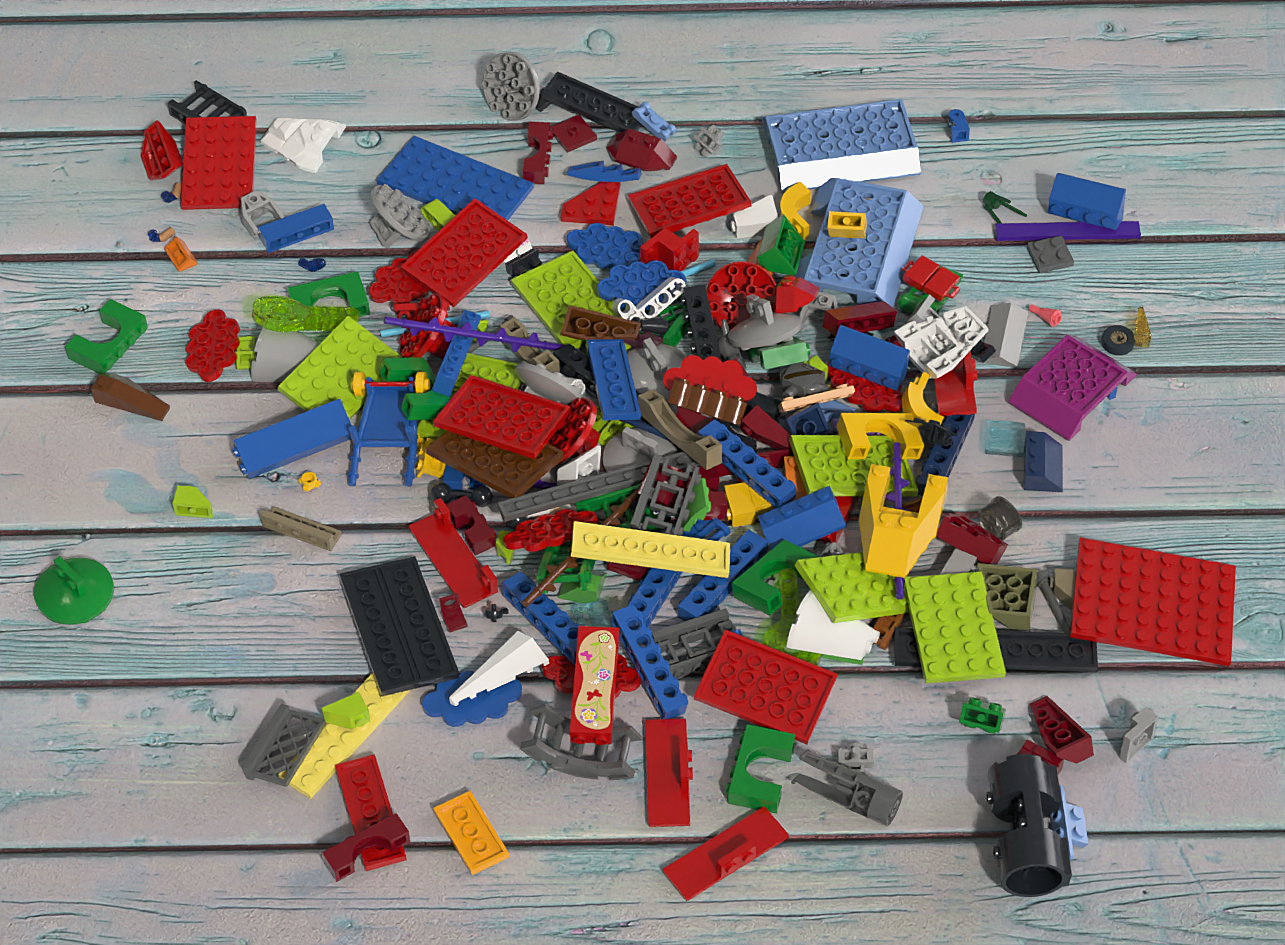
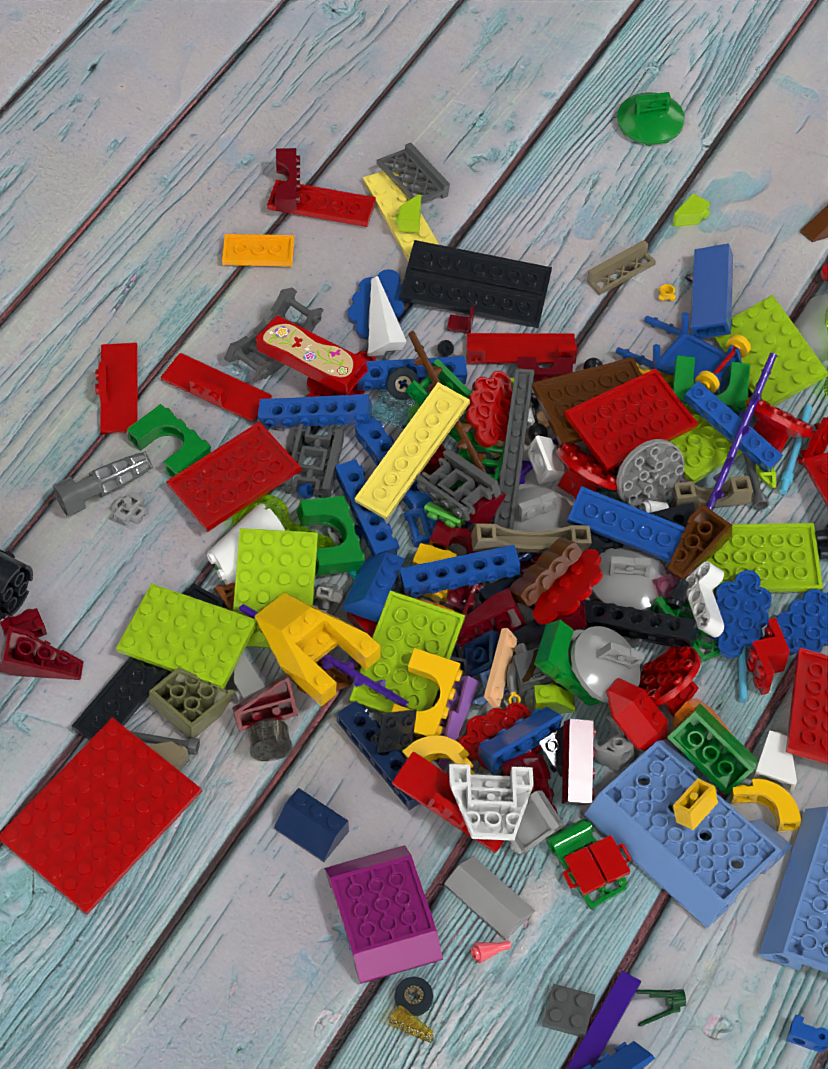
camera: 120 degrees right, 5 degrees up
(570, 609) = (395, 376): none -> black bush
(982, 351) = (484, 860): black slope -> none
(982, 715) = (93, 610): green brick -> none
(1004, 438) = (364, 812): clear light blue plate -> none

